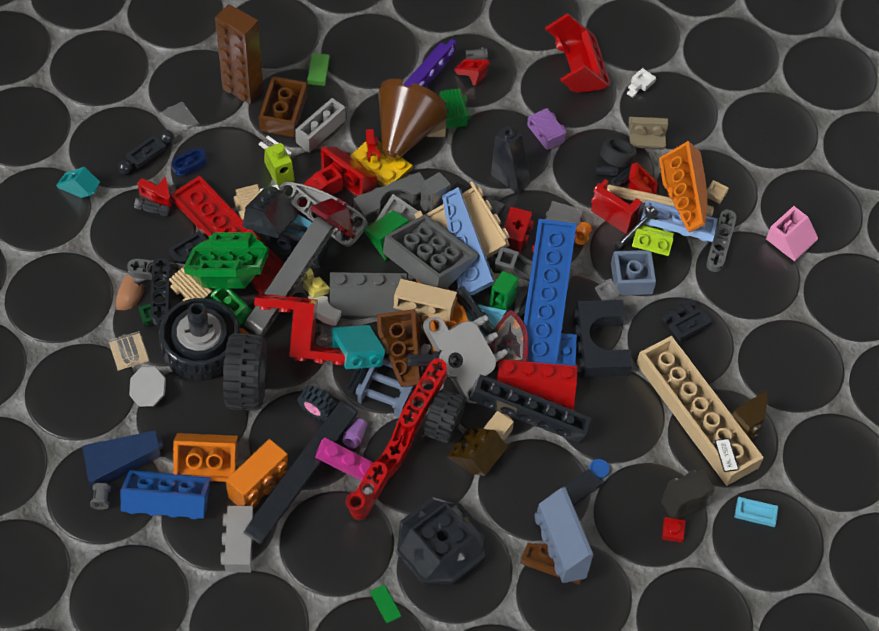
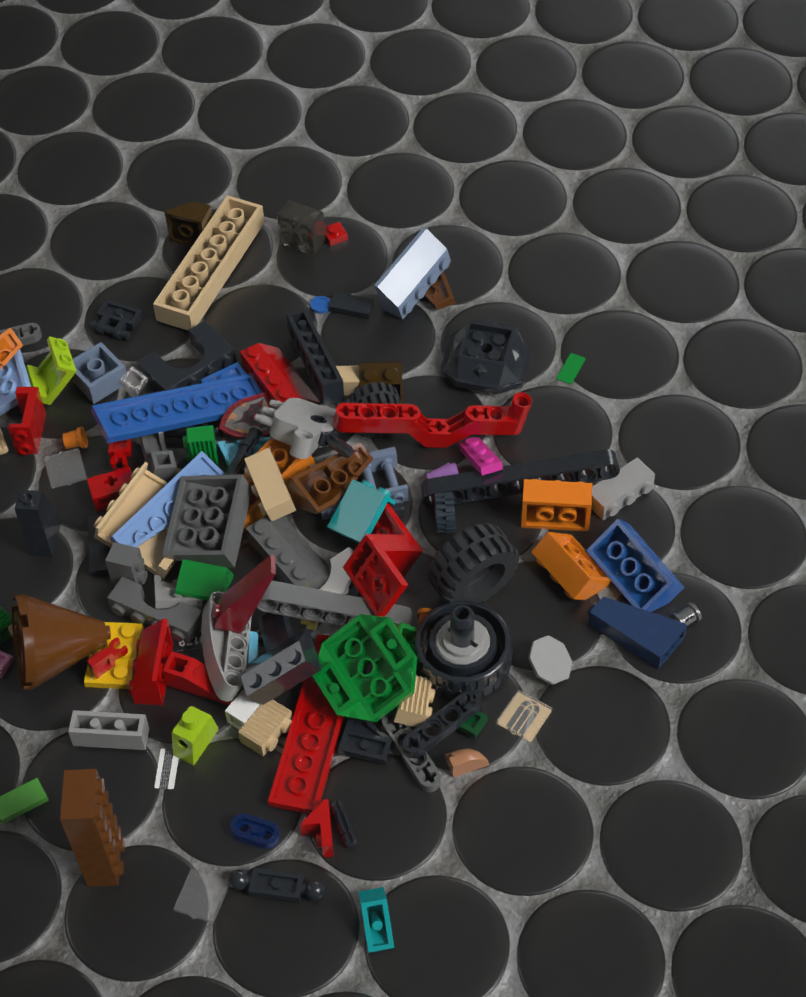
camera: 120 degrees left, 5 degrees down
(283, 106) = (123, 777): reddish brown brick -> none
(651, 213) = (22, 380): black piece -> none
(726, 455) = (245, 216): white sticker -> none
(756, 511) = (271, 196): medium azure tile -> none

